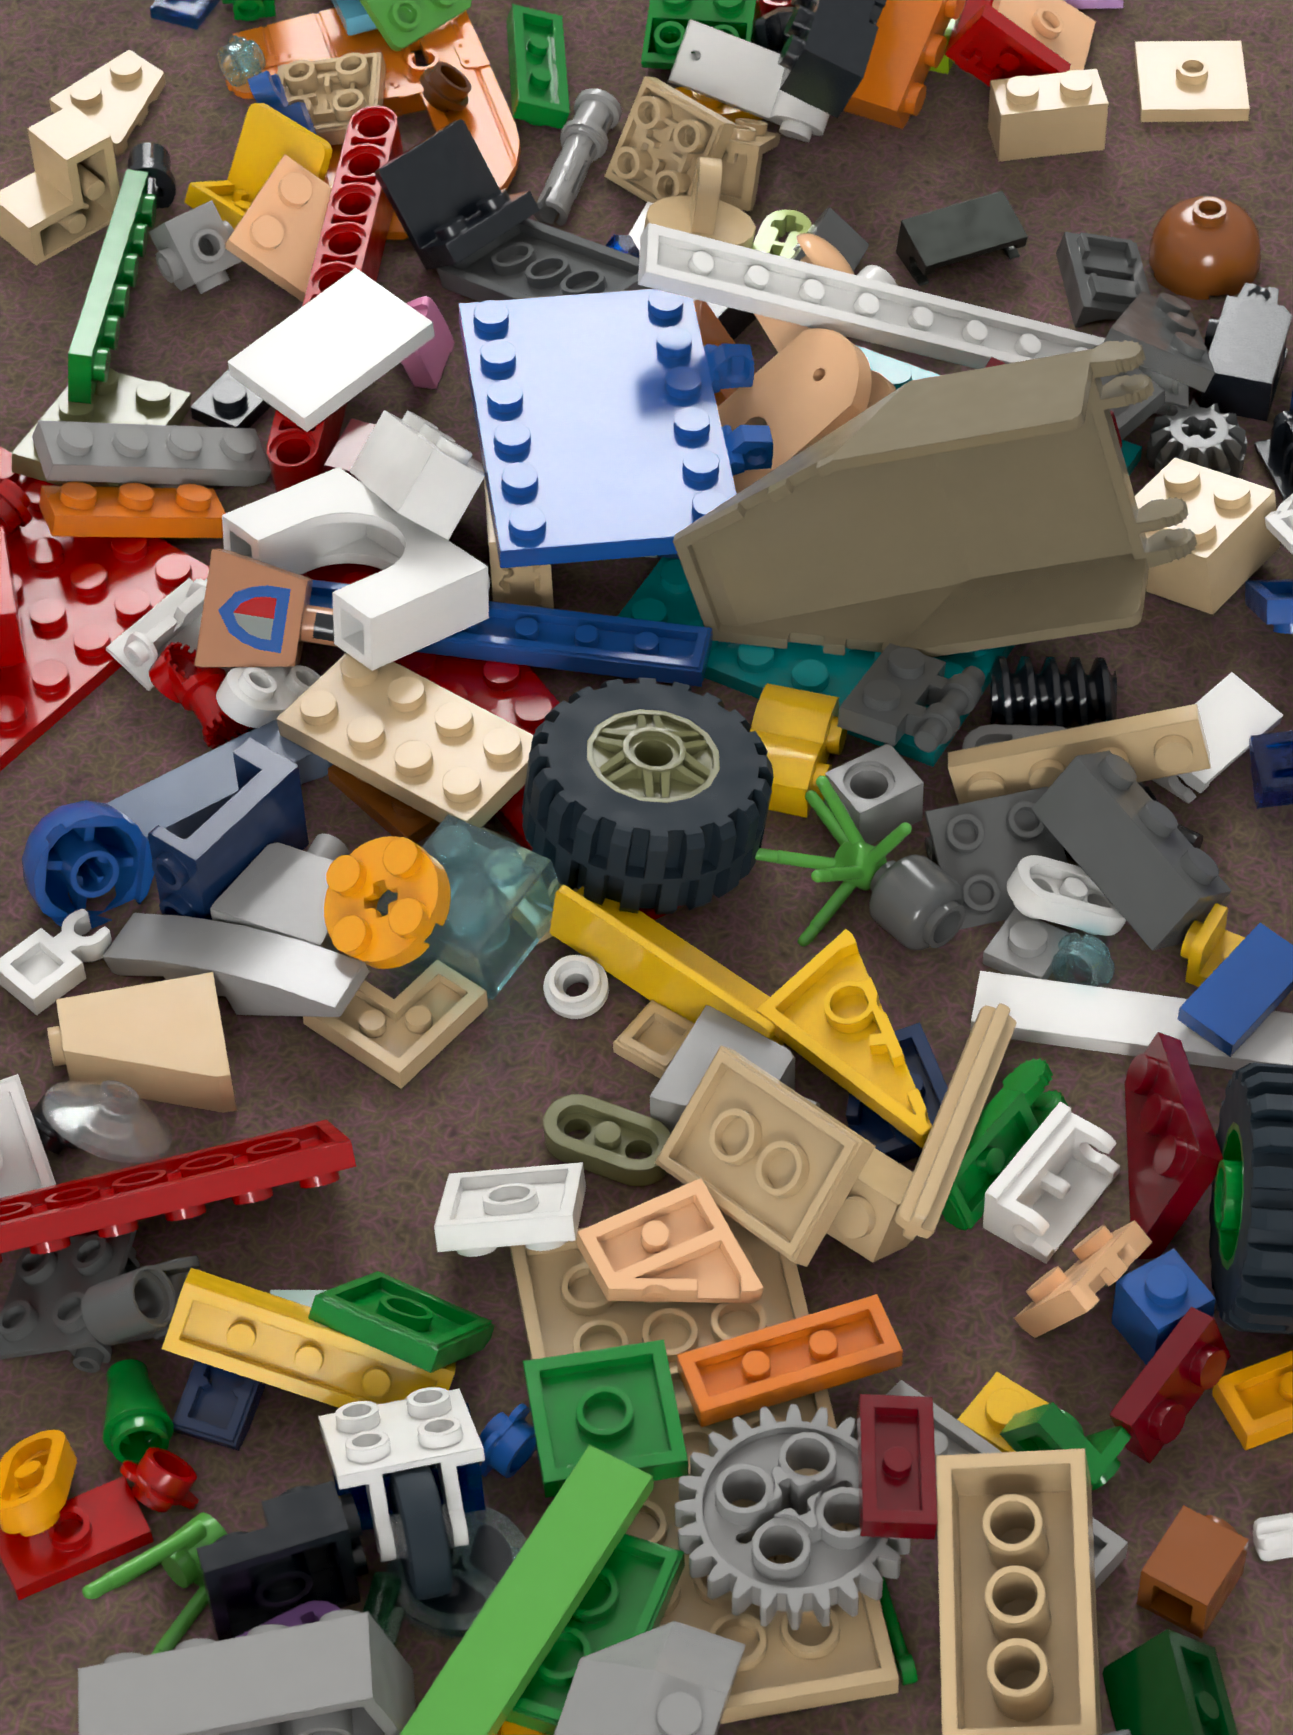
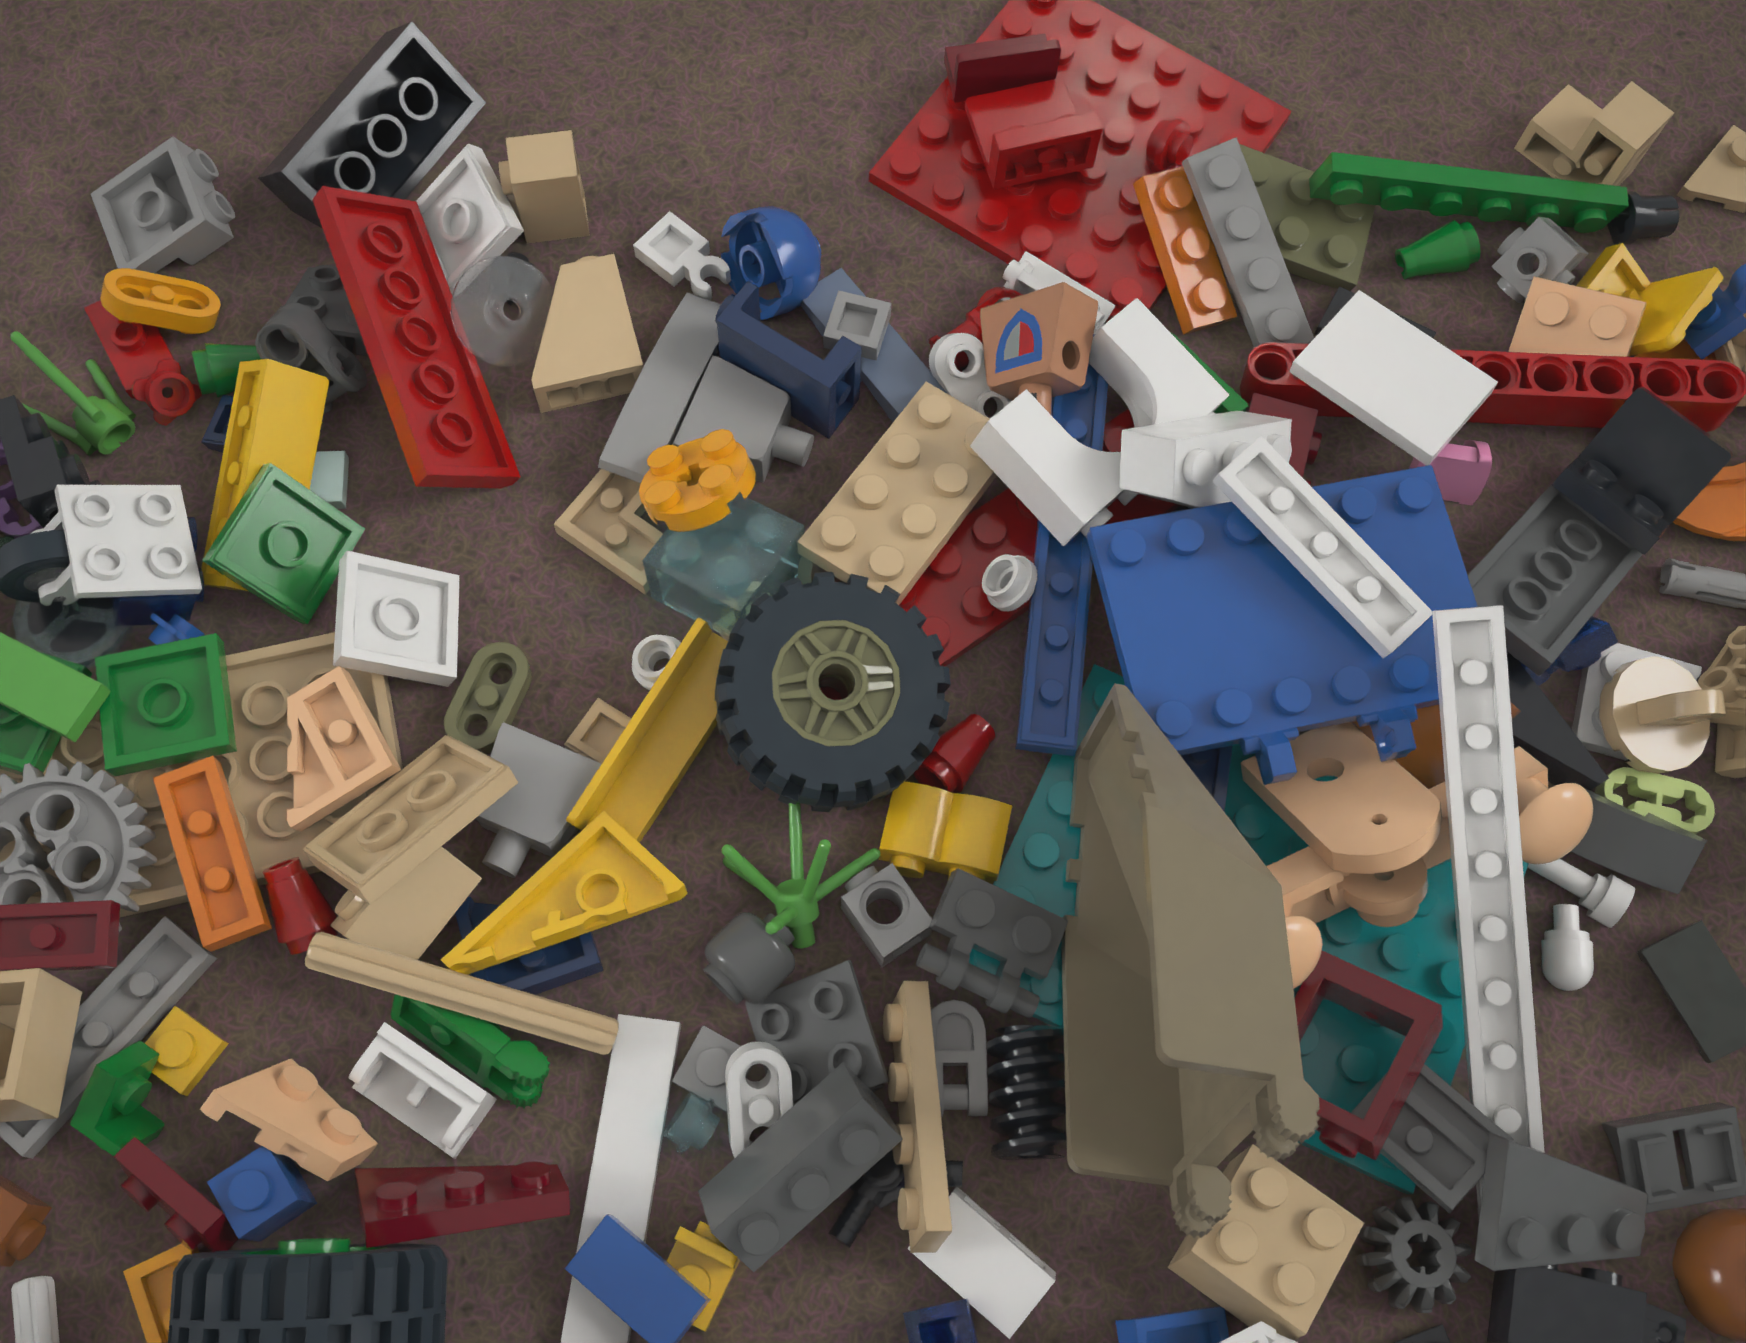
camera: 80 degrees right, 20 degrees up
(162, 324) = (1441, 251): none -> green cone
(193, 776) = (860, 320): none -> light grey plate
(506, 671) = (1009, 581): none -> white plate
(547, 372) = (1322, 547): none -> white plate
(848, 1284) = (297, 905): none -> red cone

